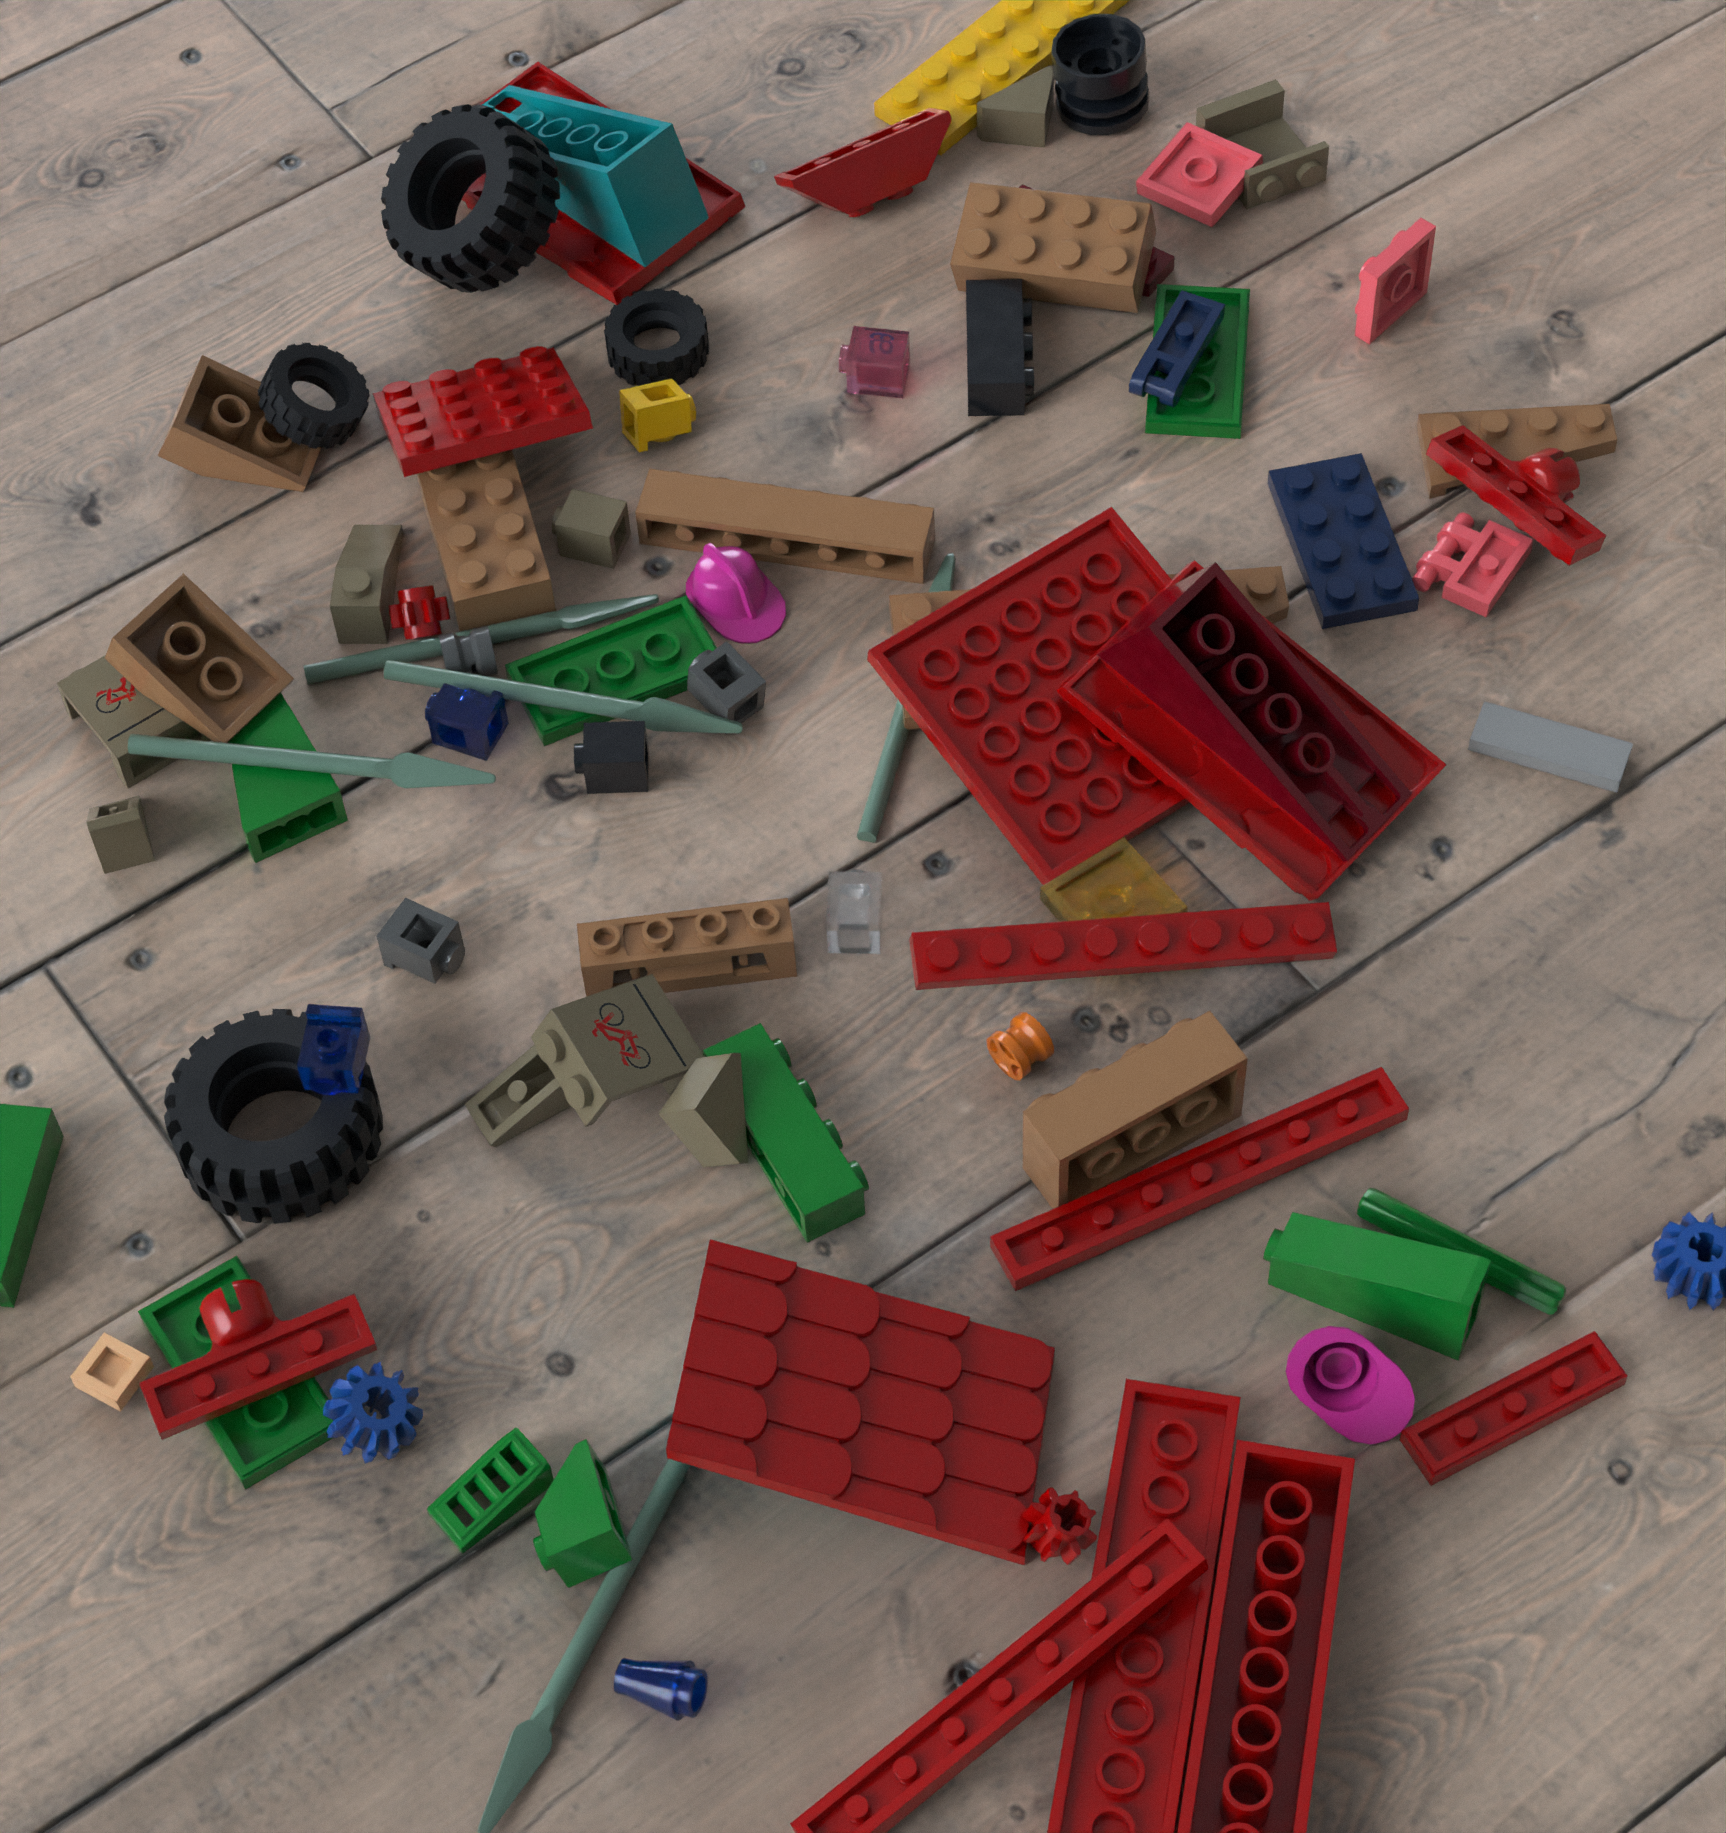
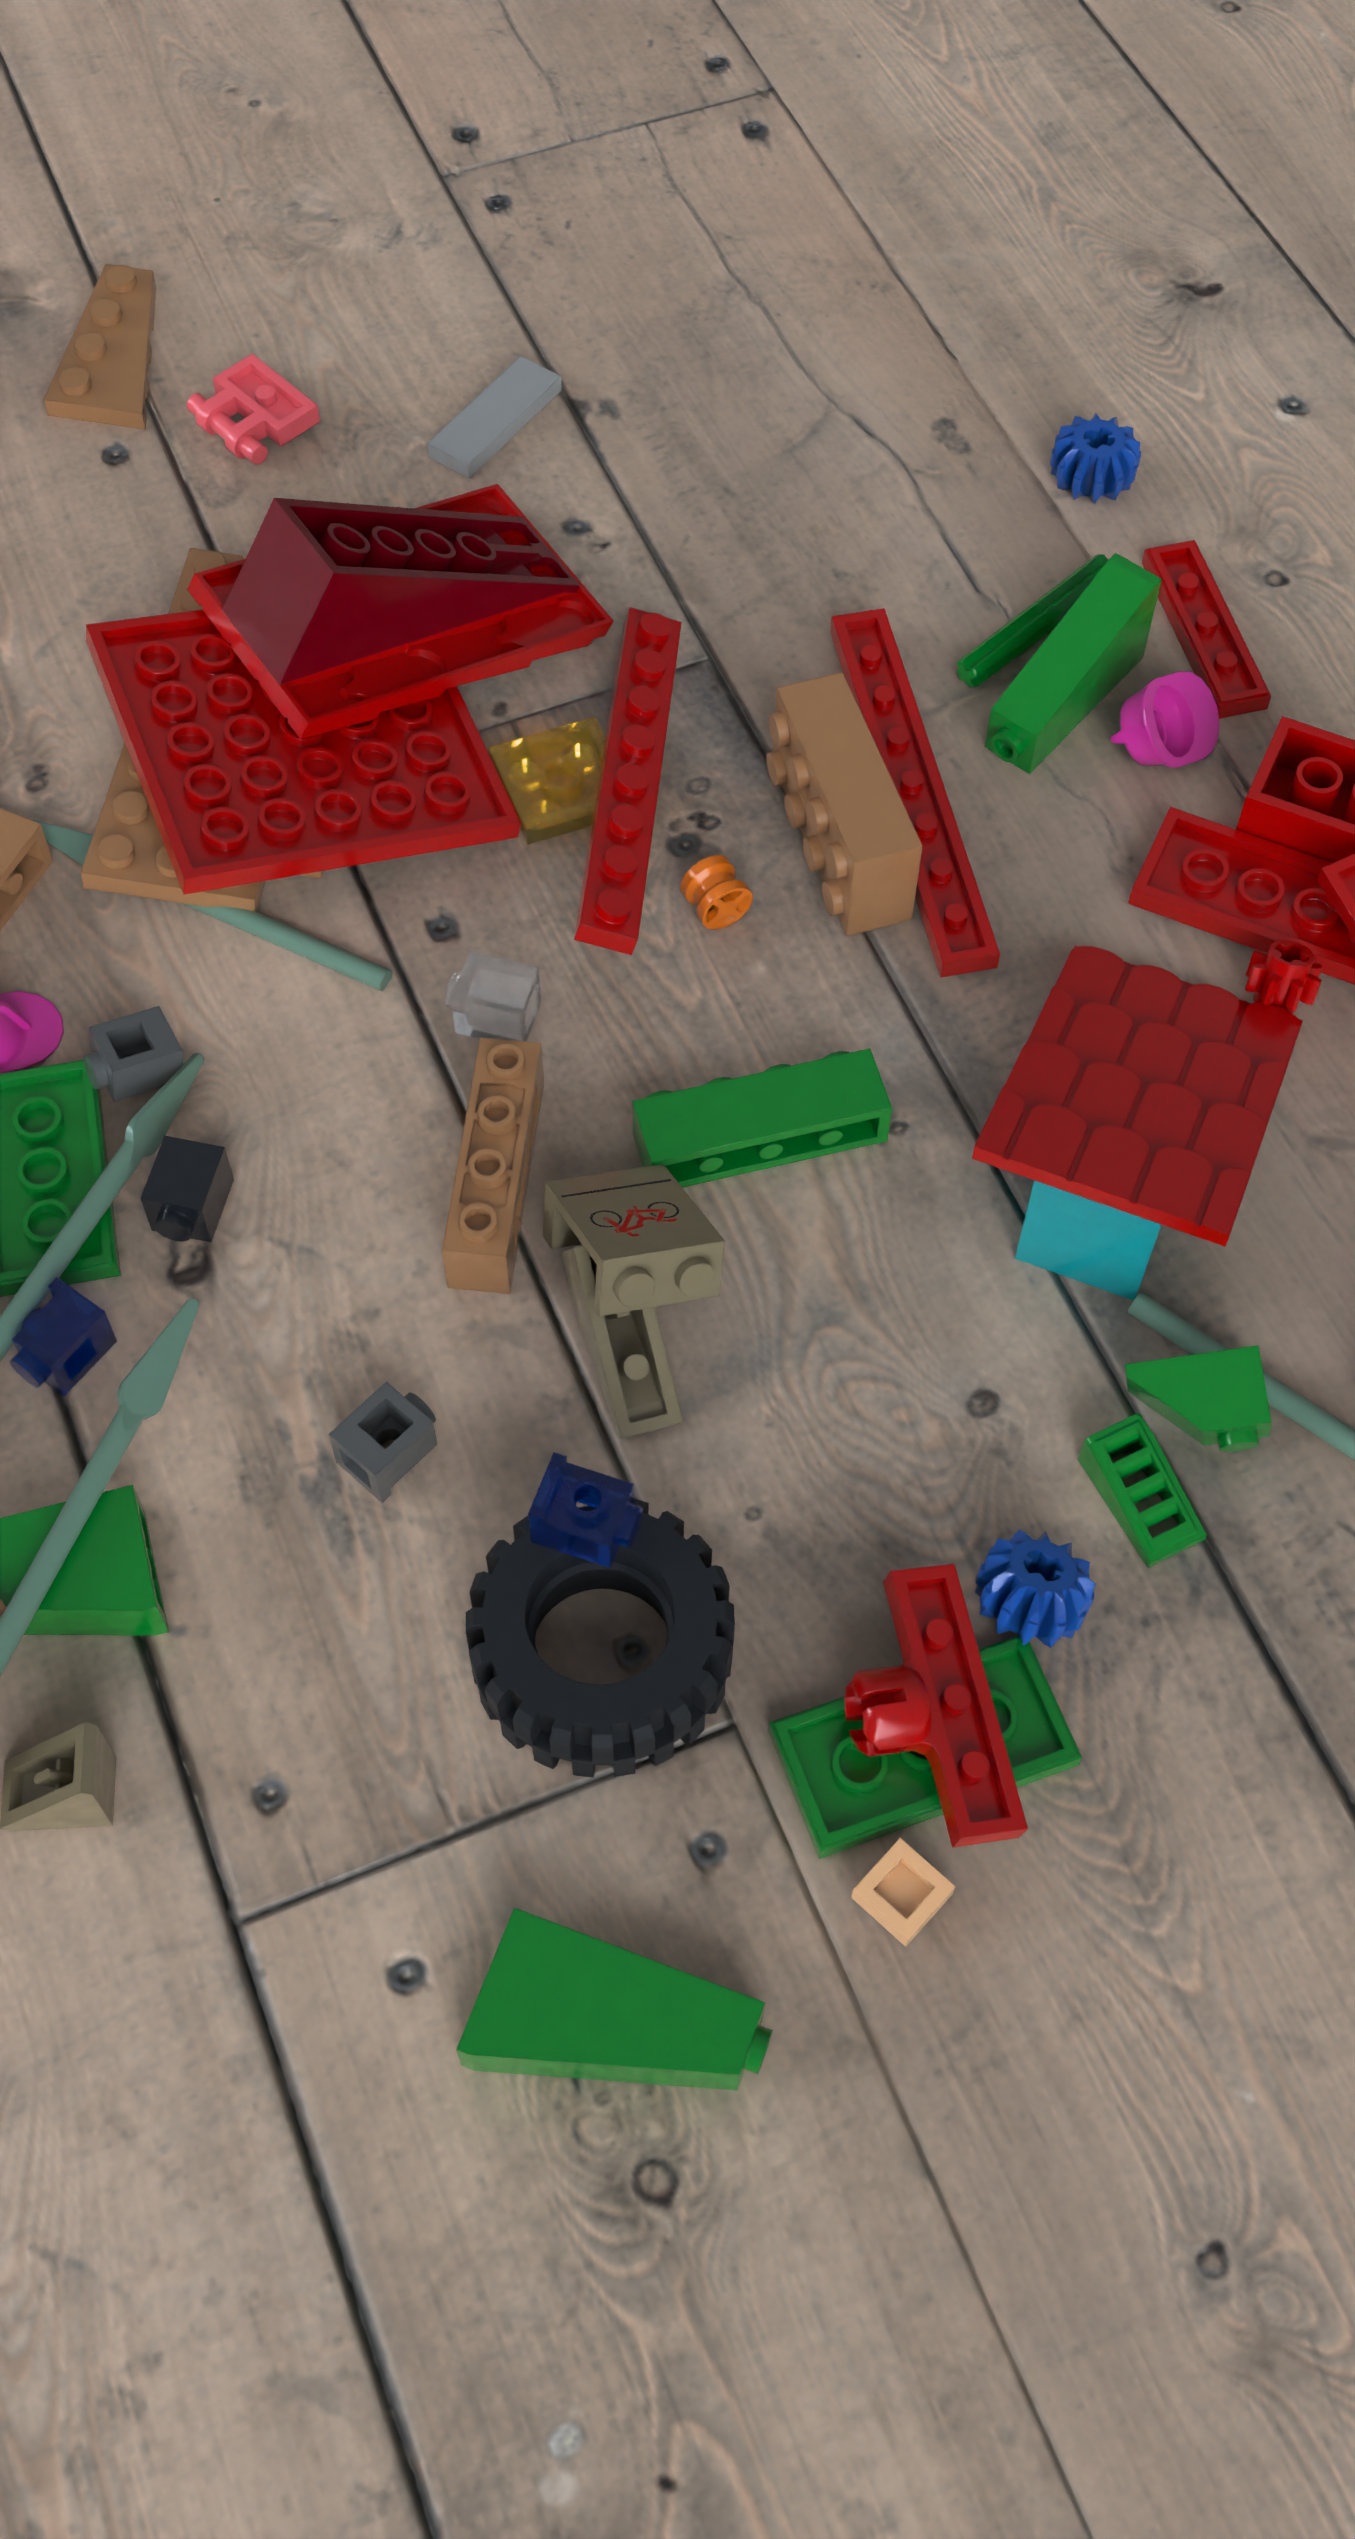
camera: 80 degrees left, 5 degrees up
(710, 1111) = (729, 1166): dark tan slope -> none
(1342, 541) = (167, 500): dark blue plate -> none
(1524, 491) = (193, 336): red plate -> none

